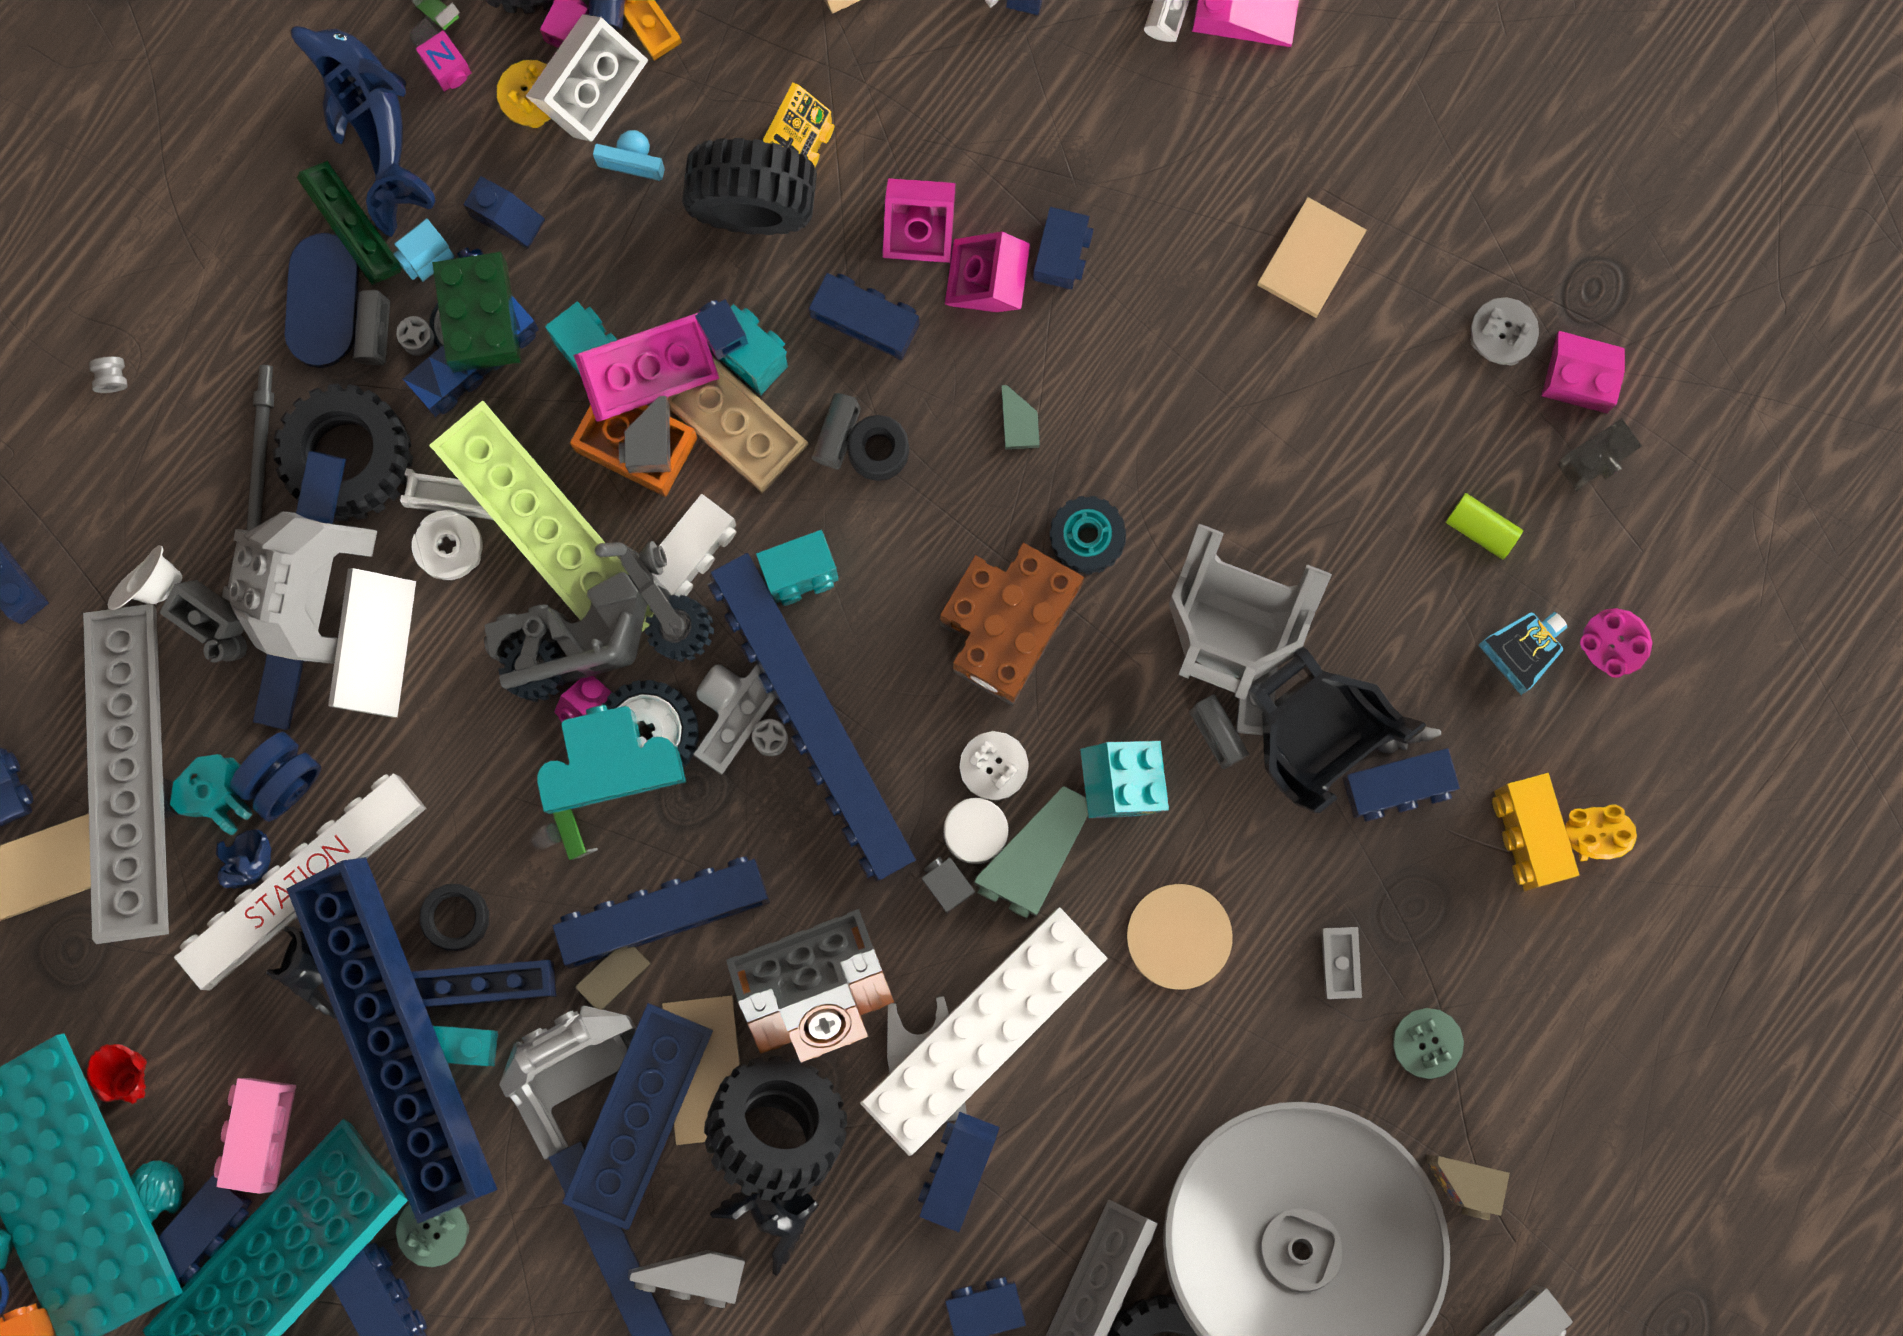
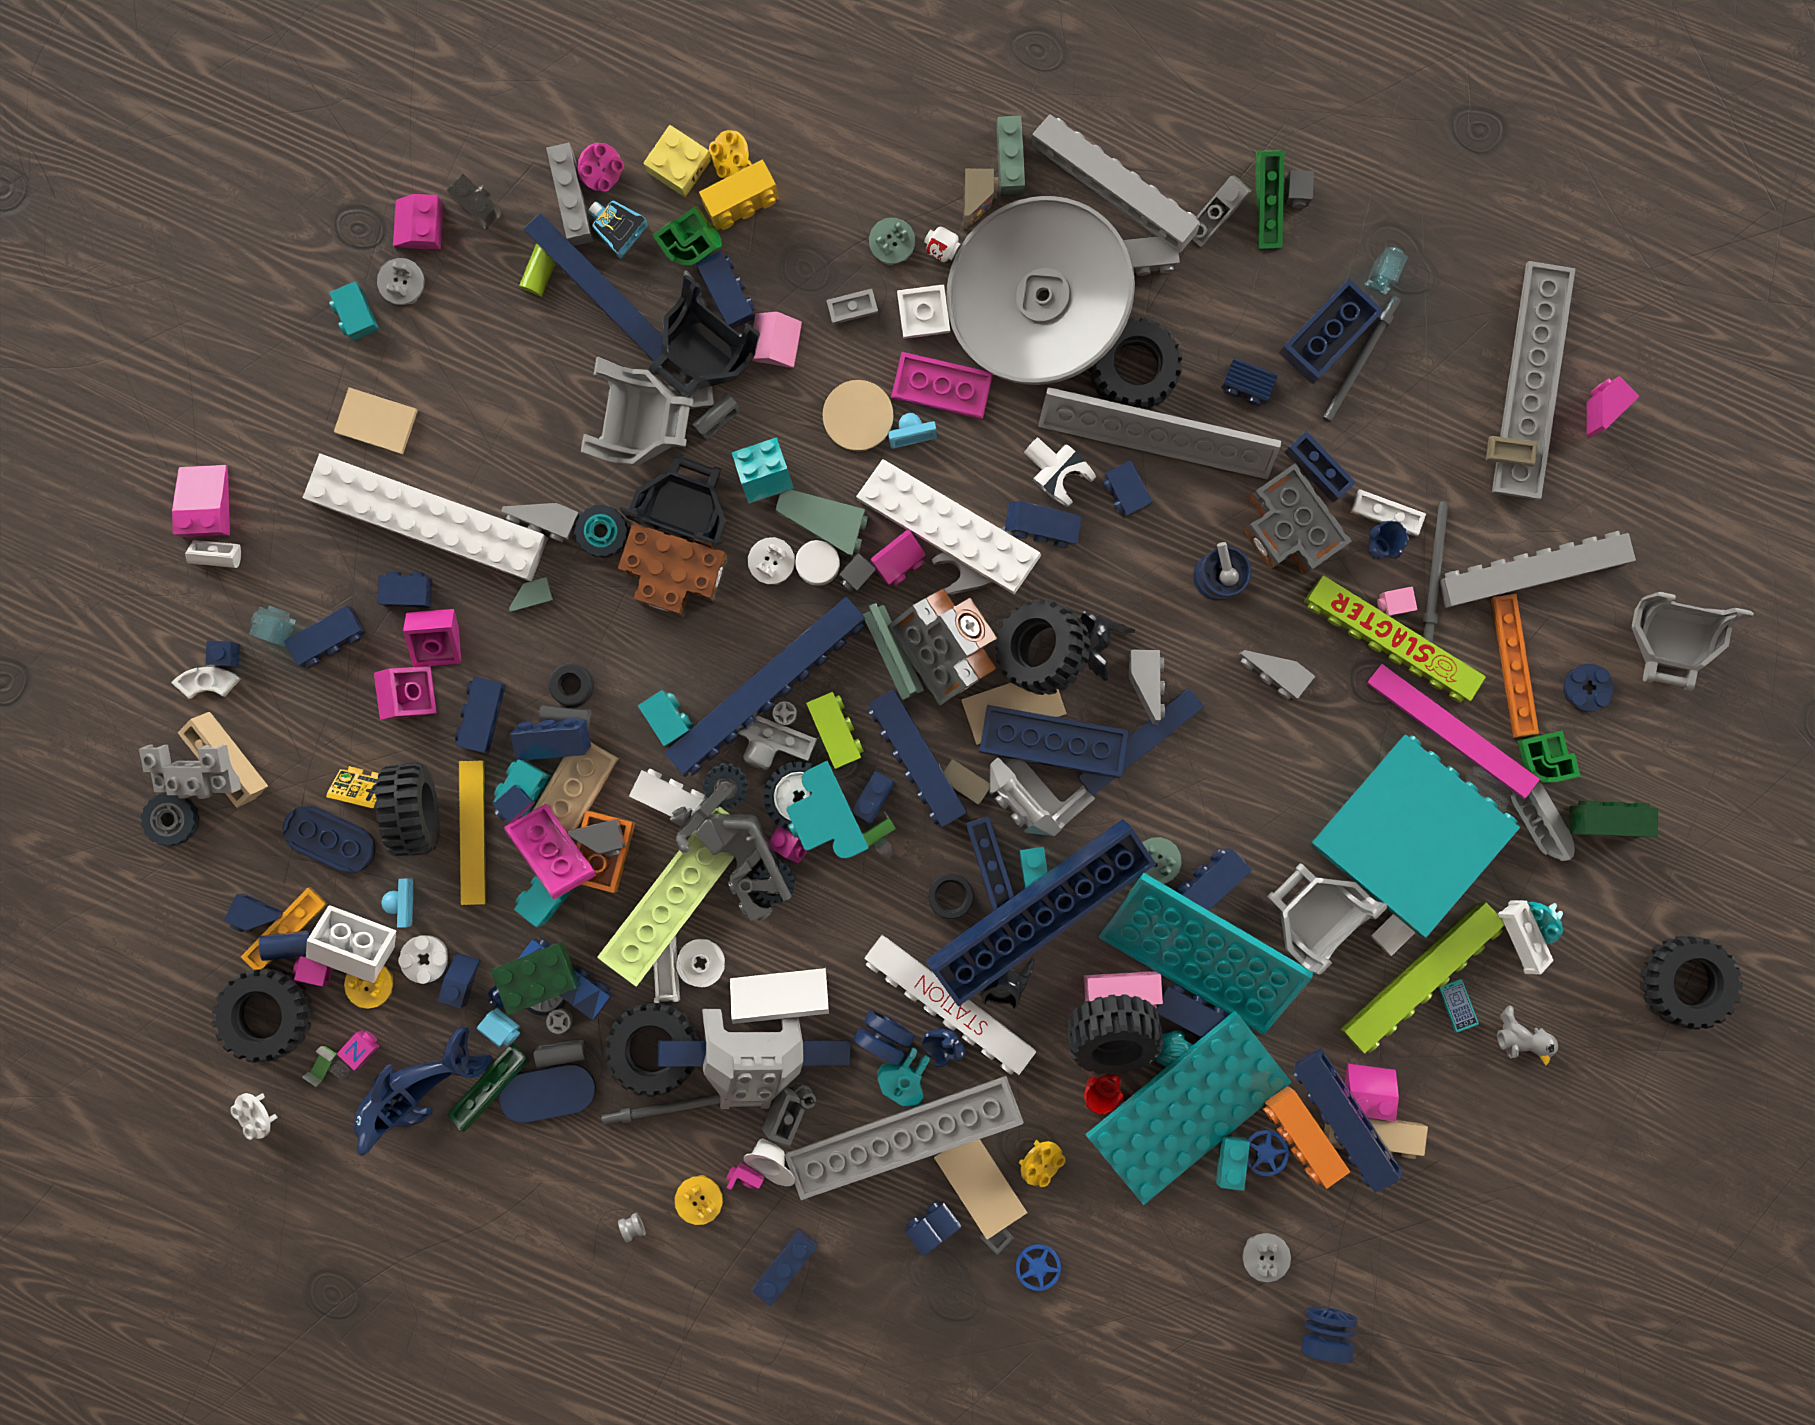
camera: 105 degrees left, 5 degrees up
(43, 962) = (1041, 1163): none -> yellow plate
(107, 481) = (691, 1191): none -> yellow plate
(136, 547) = (748, 1176): none -> dark pink bracket
(190, 1106) = (1114, 1034): none -> black tyre
(546, 153) = (410, 959): none -> white plate
(620, 836) = (873, 797): none -> dark blue brick
(704, 272) = (472, 832): none -> yellow tile
(729, 803) = (835, 730): none -> lime brick
(741, 80) = (329, 839): none -> dark blue tile
(790, 917) = (891, 652): none -> sand green fence
(805, 403) = (550, 739): none -> dark blue brick
(953, 948) = (898, 559): none -> dark pink slope
(1020, 129) = (325, 637): none -> dark blue brick
(1040, 1212) = (1056, 468): none -> white connector
(1050, 60) = (272, 625): none -> clear light blue brick
(1099, 653) = (681, 504): none -> black piece
(1121, 467) = (548, 517): none -> light grey slope
(1139, 1009) = (911, 431): none -> medium azure tile
(1157, 297) = (425, 517): none -> white brick
(1198, 1070) = (942, 385): none -> dark pink tile
(1313, 1066) = (923, 311): none -> white plate
(1316, 842) = (777, 338): none -> bright pink slope
(1407, 1116) = (942, 244): none -> white head
(1443, 599) = (595, 285): none -> dark blue tile
(1473, 257) = (353, 311): none -> teal brick
(1486, 746) = (688, 238): none -> green brick
(1522, 1249) = (1010, 155): none -> sand green brick
(1584, 591) = (570, 194): none -> light grey brick
(1605, 755) = (677, 161): none -> light yellow brick

